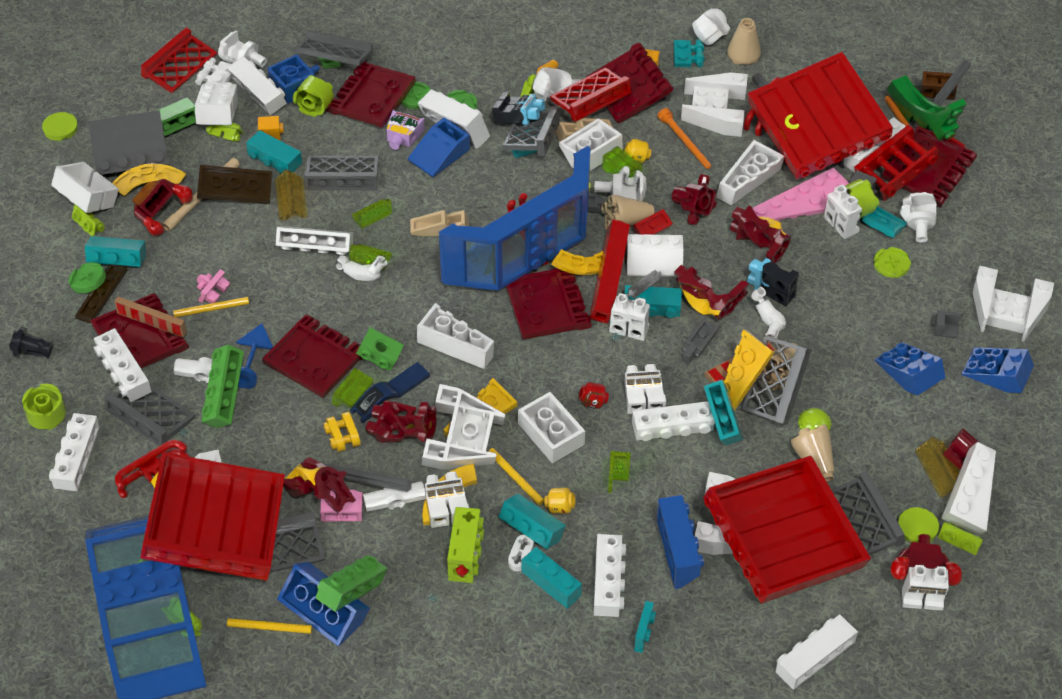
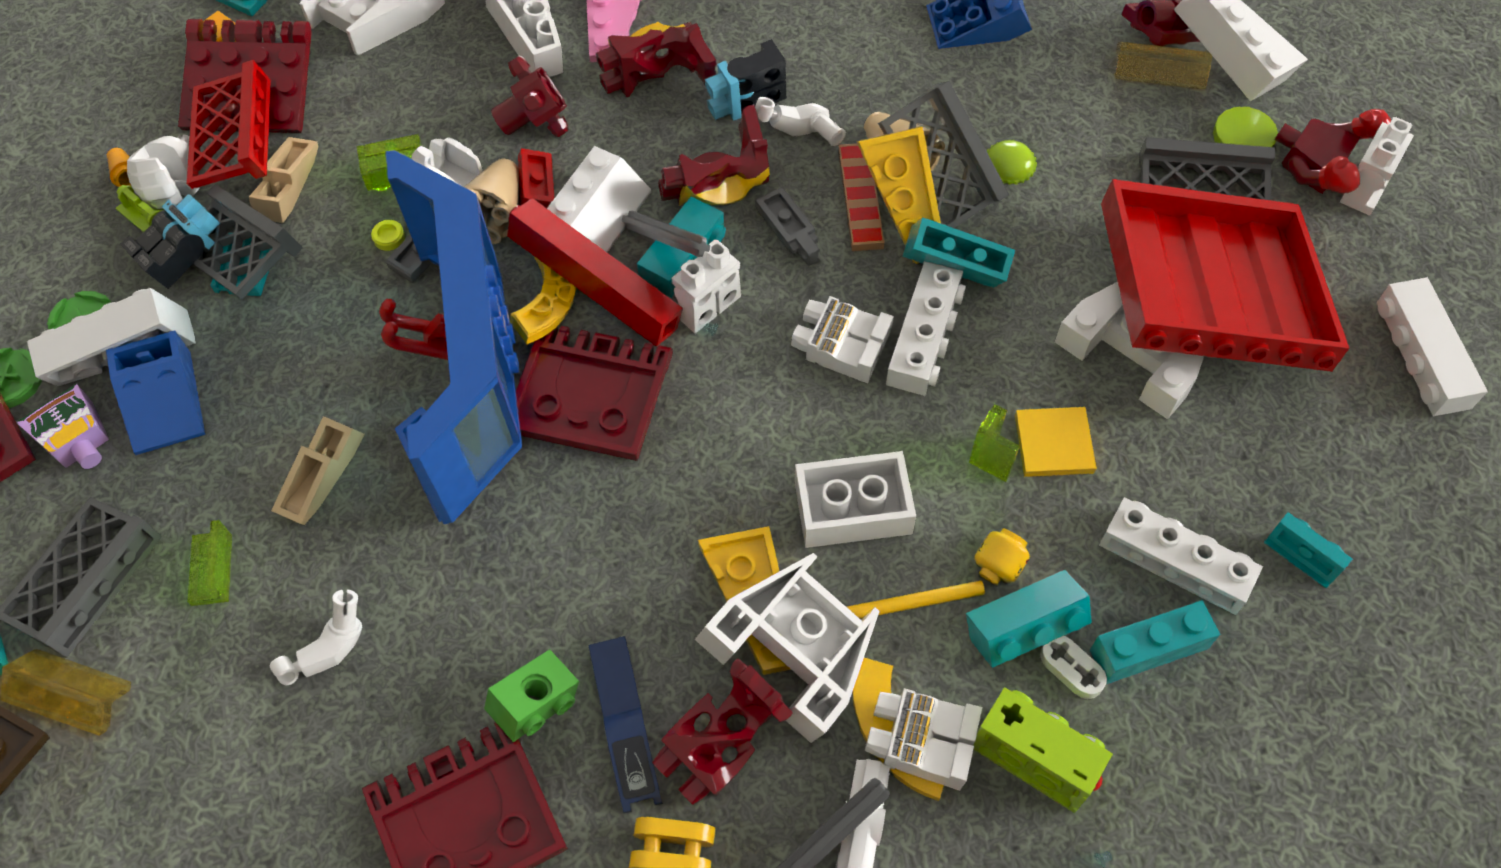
camera: 60 degrees left, 10 degrees up
(314, 239) = (201, 694): white brick -> none
(351, 388) = (589, 786): clear neon green panel -> none
(366, 254) = (299, 615): clear neon green panel -> none
(453, 337) = (582, 559): white wedge -> none
(593, 395) = (816, 410): red head -> none
(597, 136) = (327, 180): white slope -> none
(638, 150) = (380, 126): yellow head -> none
(641, 503) = (1055, 441): none -> yellow tile
(666, 116) = (341, 67): orange piece -> none
(678, 540) = (1174, 424): blue slope -> none
(818, 445) = (1073, 178): tan cone -> none
(960, 538) = (1289, 97): lime hinge -> none

